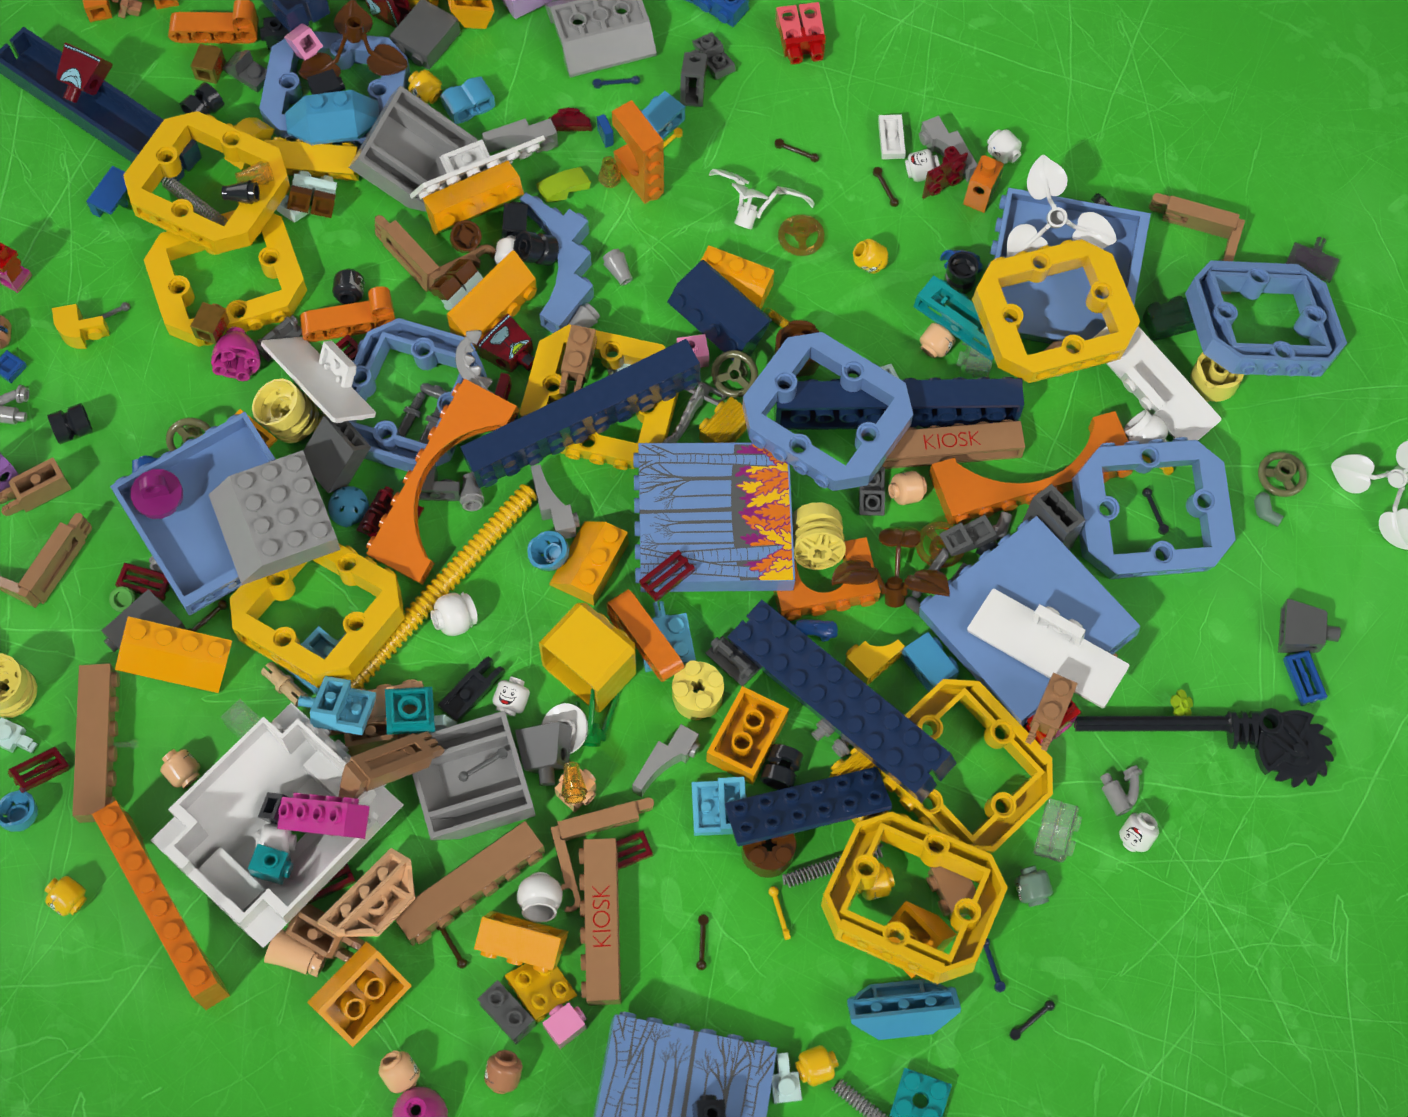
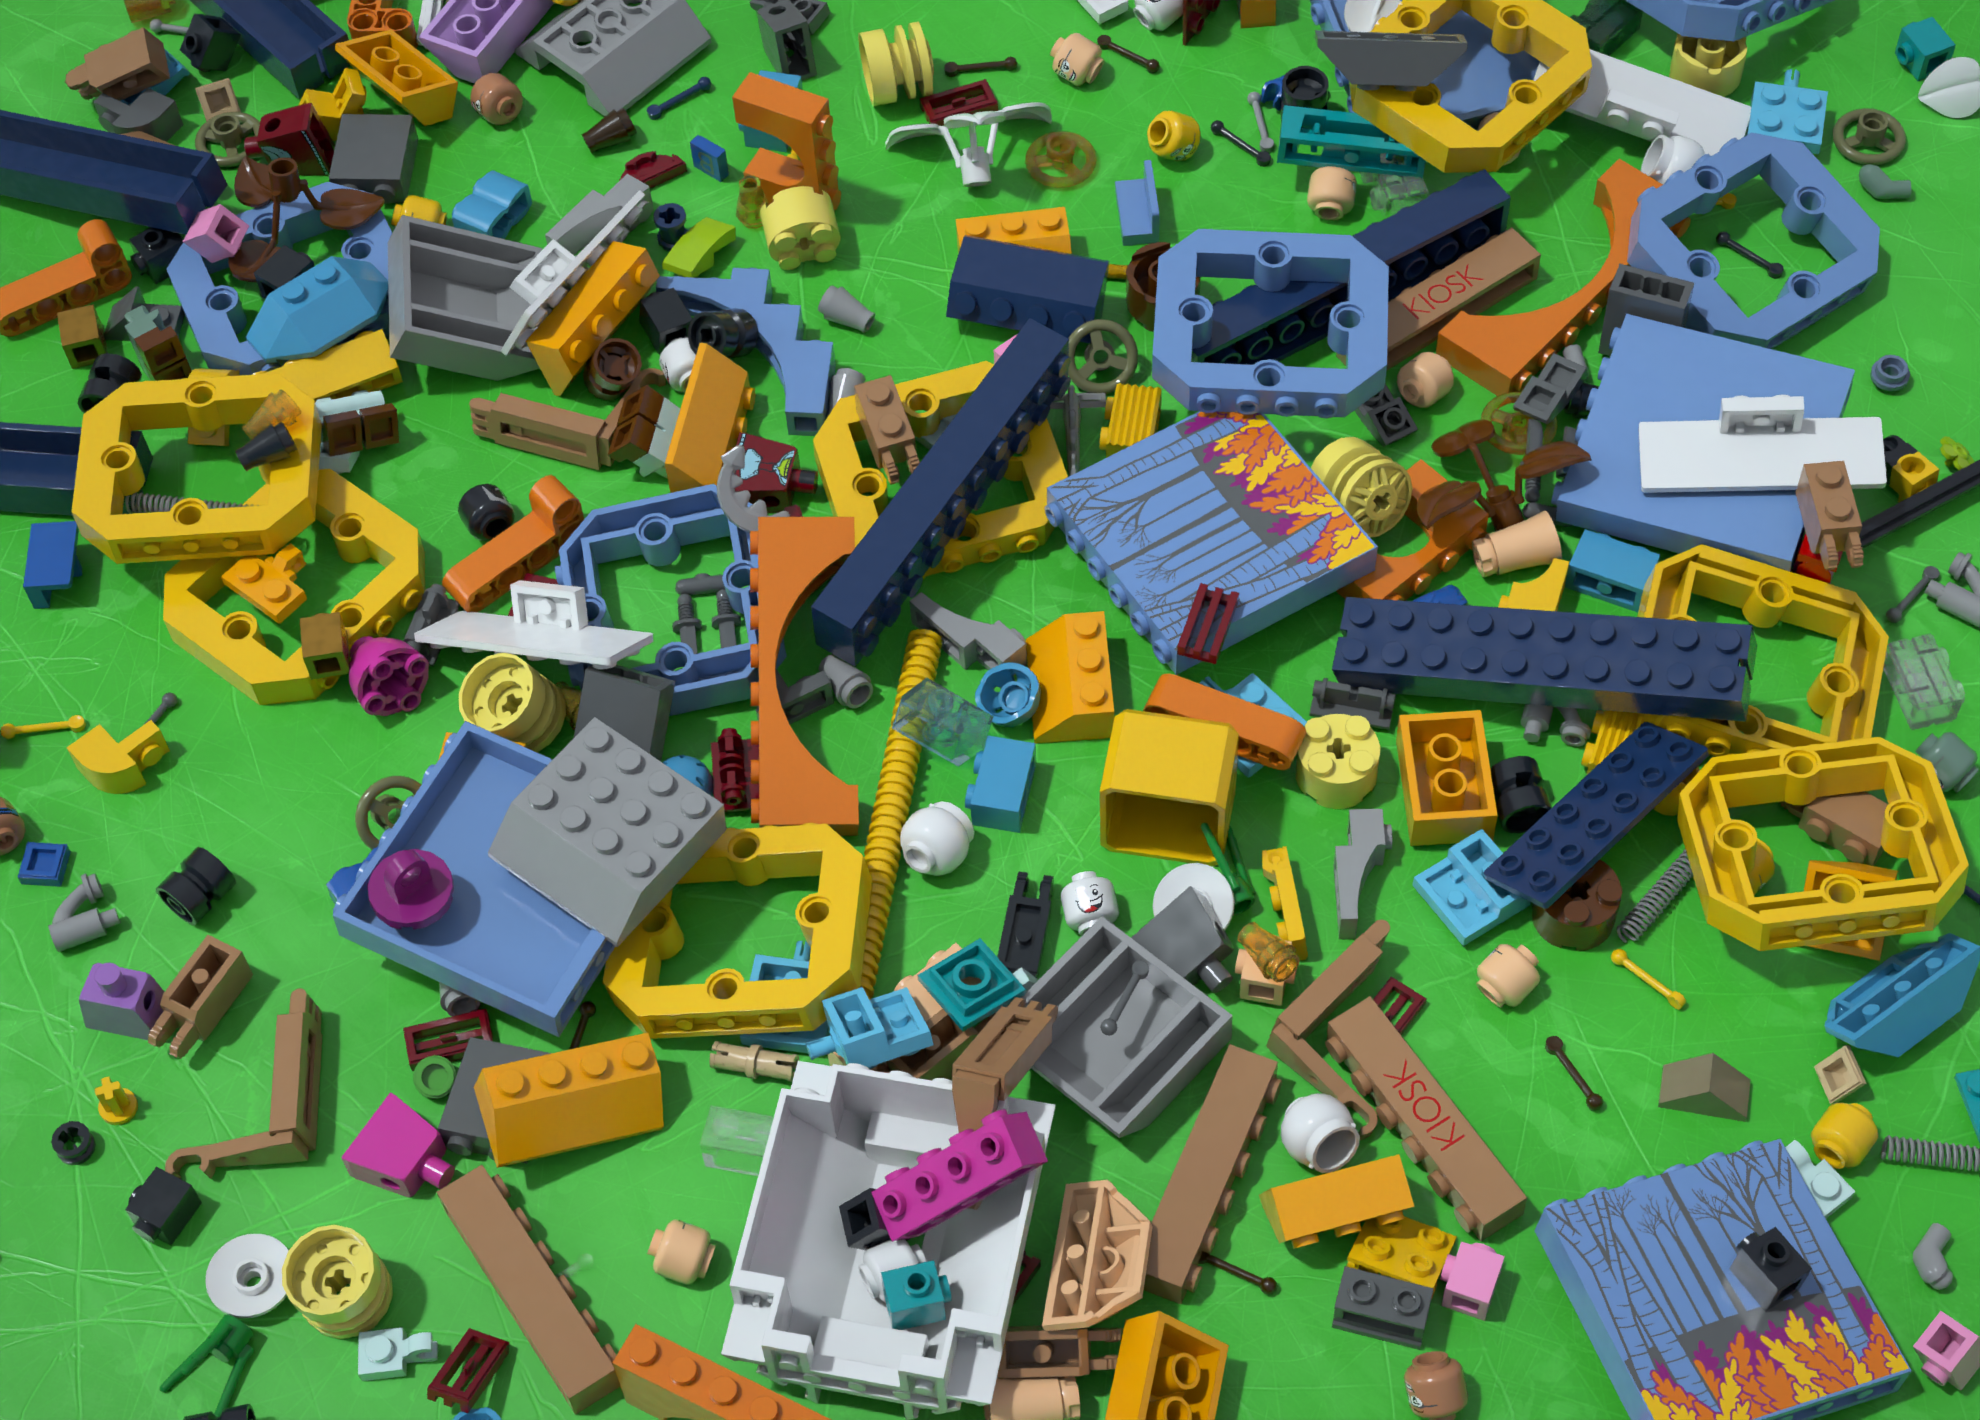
camera: 25 degrees left, 10 degrees down
(72, 293) = (75, 723): none -> yellow hinge
(80, 629) = (398, 1151): none -> dark pink torso
(206, 269) = (270, 582): none -> light orange hinge
(237, 94) = (156, 346): none -> reddish brown hips
(499, 548) = (942, 722): none -> clear light blue brick
(512, 600) = (1002, 783): none -> dark azure brick
(513, 28) = (495, 96): none -> nougat head
(556, 161) = (670, 221): none -> bush
(563, 84) = (610, 131): none -> dark brown cone
(615, 756) = (1284, 897): none -> yellow hinge
(622, 203) = (800, 227): none -> light yellow brick
(702, 867) = (1508, 975): none -> light nougat head
(742, 126) = (896, 63): none -> light yellow wheel
(765, 994) = (1705, 1087): none -> dark tan slope
(766, 172) = (959, 105): none -> dark red tile
(822, 290) = (1138, 208): none -> medium blue panel
(841, 1030) = (1840, 1074): none -> tan slope
(850, 176) = (1077, 59): none -> light nougat head
(886, 619) = (1518, 546): none -> light nougat plant
(904, 262) = (1262, 157): none -> black hinge
(937, 254) = (1266, 143): none -> light grey hinge
(1000, 282) = (1390, 58): none -> dark grey wedge
(1112, 768) = (1895, 614): none -> dark grey hinge
(1141, 694) = (1907, 468): none -> yellow leg
(1185, 627) = (1890, 373): none -> sand blue plate
(1239, 435) = (1789, 111): none -> medium azure plate
(1356, 435) = (1923, 47): none -> teal brick

